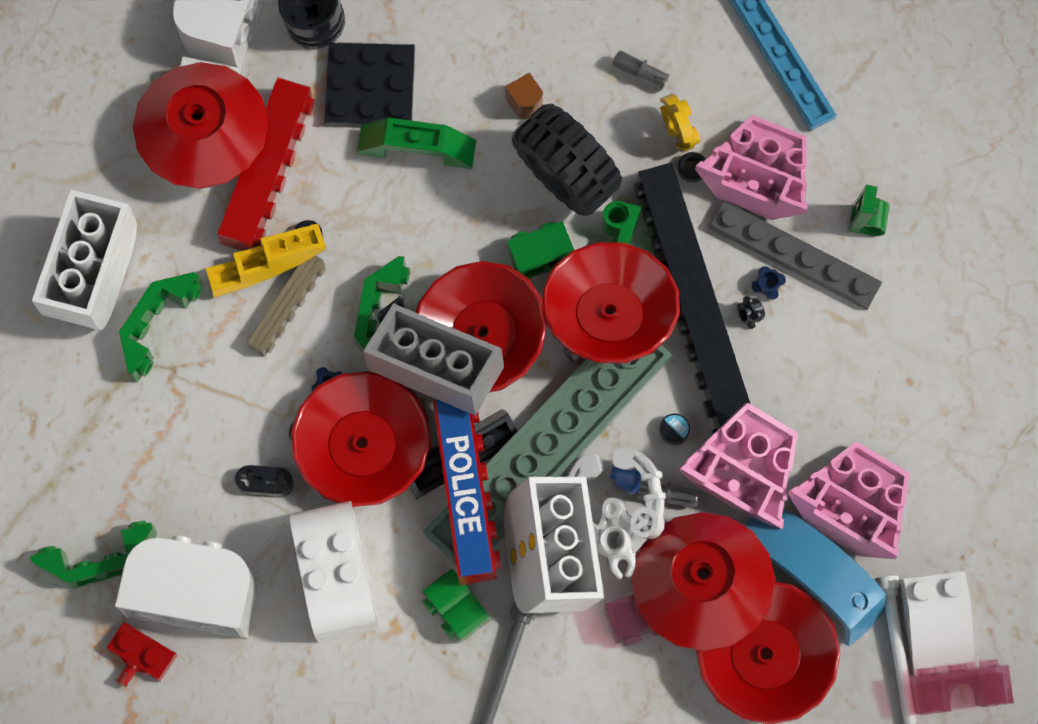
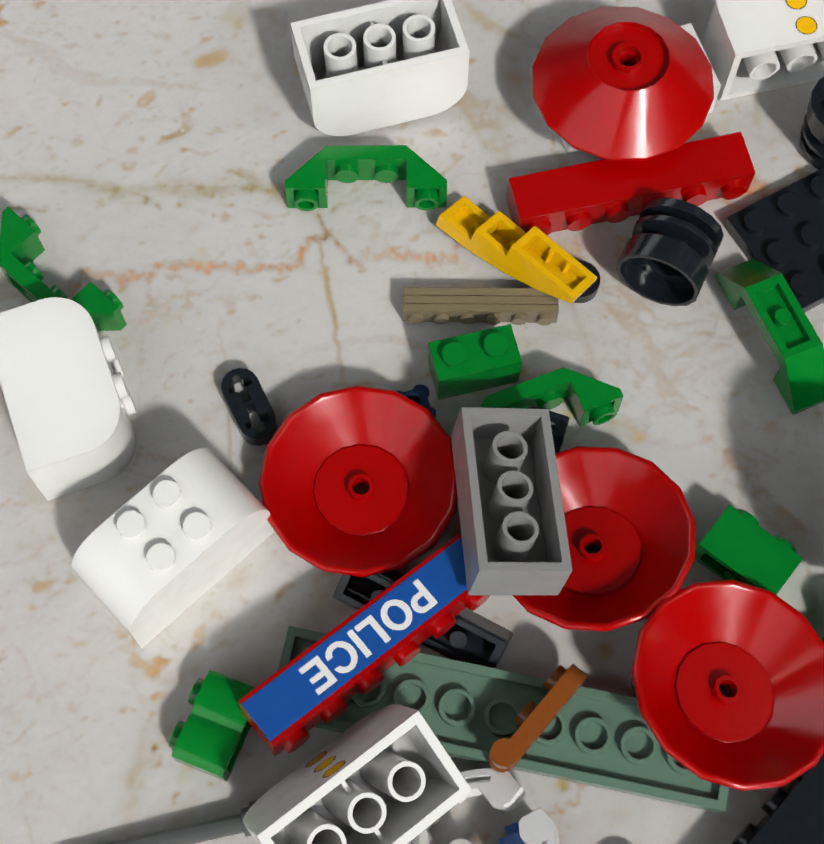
camera: 60 degrees right, 5 degrees down
(324, 329) = (474, 361): none -> green brick
(330, 171) = (670, 251): none -> black wheel
(563, 423) = (536, 718): none -> dark orange plate

